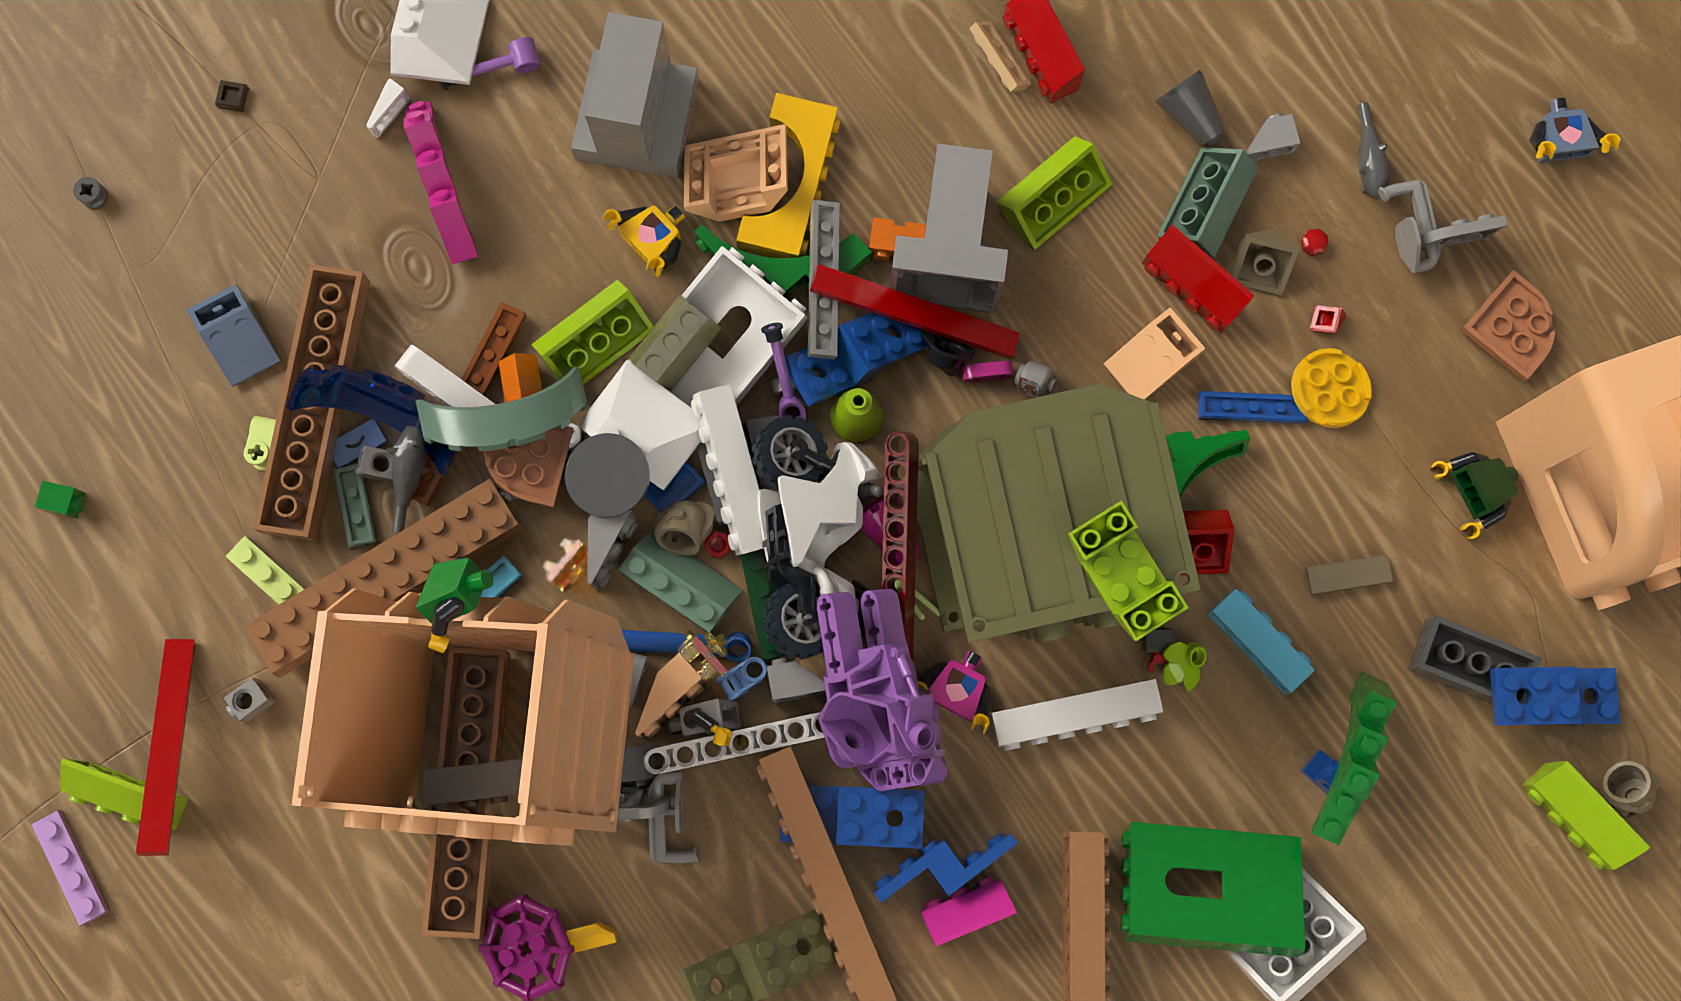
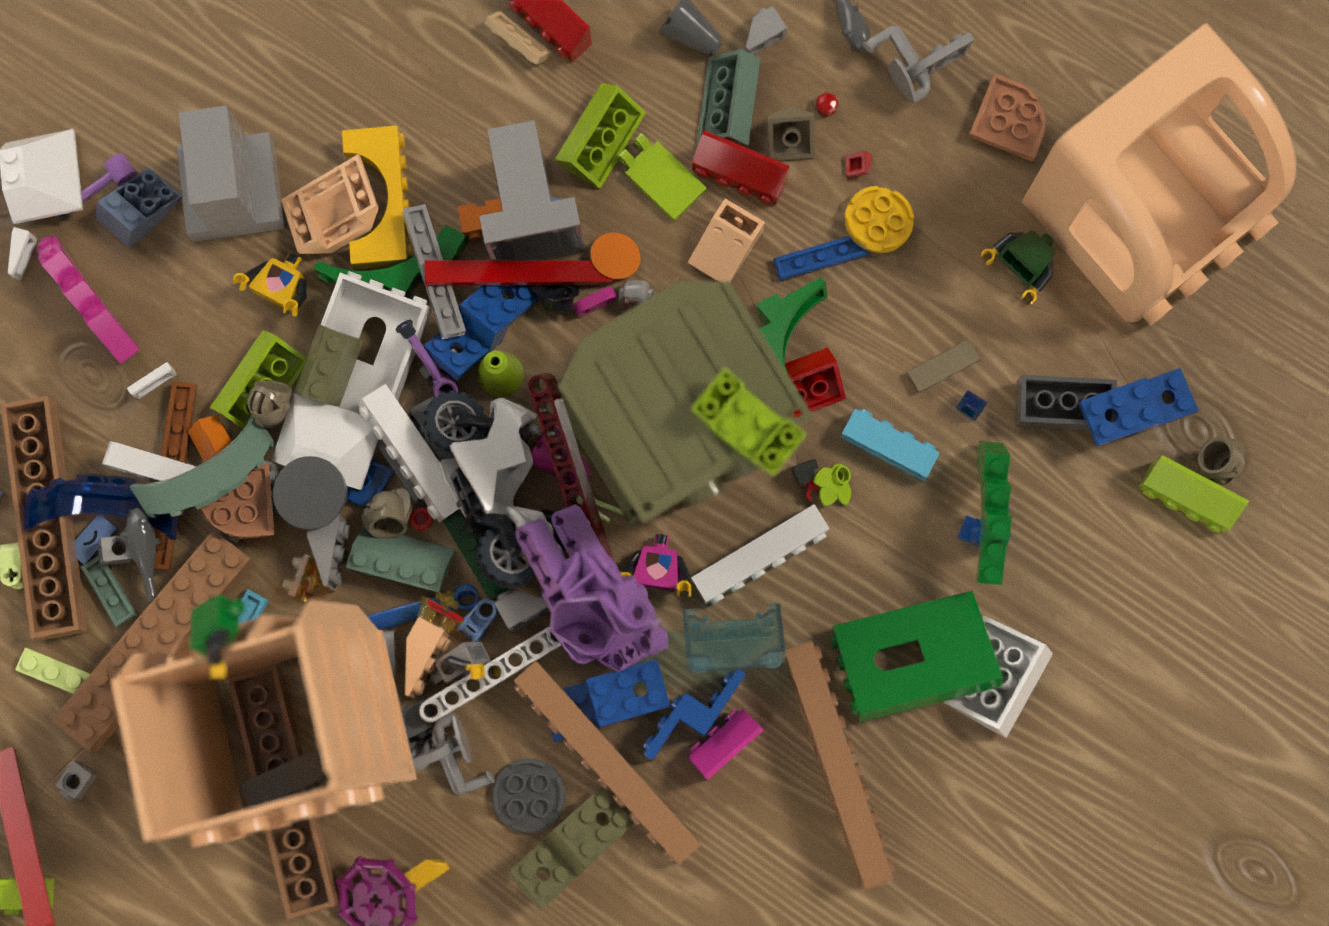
camera: 15 degrees left, 0 degrees up
(479, 294) = (152, 381): none -> white tile
(527, 101) = (136, 206): none -> sand blue slope
(597, 361) = (269, 402): none -> dark tan helmet
(731, 890) = (528, 795): none -> dark grey tile
(1016, 803) = (734, 643): none -> clear light blue windscreen
(1026, 329) = (615, 255): none -> orange sticker
(1106, 261) = (662, 178): none -> lime tile
(1366, 628) = (971, 405): none -> clear blue brick

